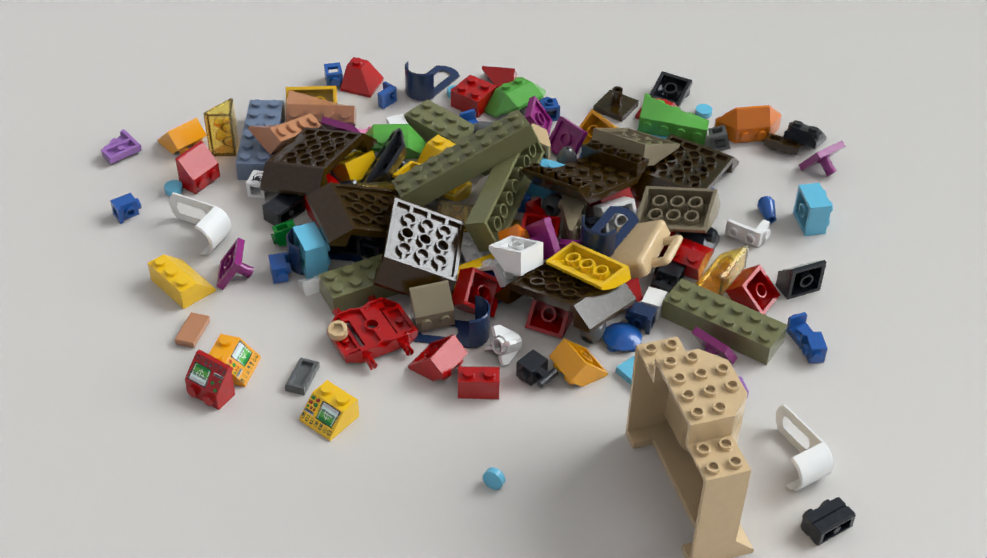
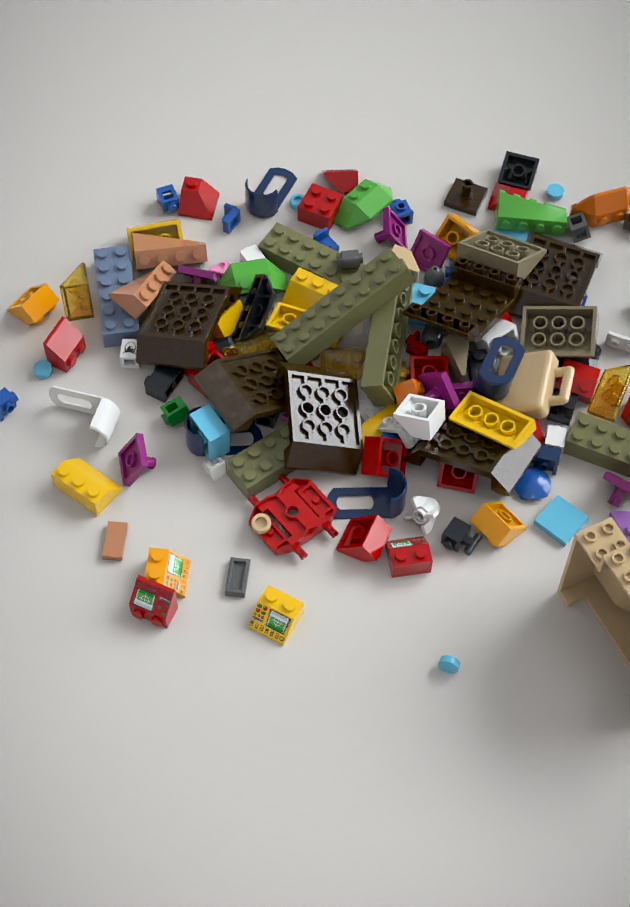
camera: 10 degrees left, 15 degrees up
(279, 267) = (181, 454): blue brick -> none
(431, 306) = (346, 482): dark tan slope -> none

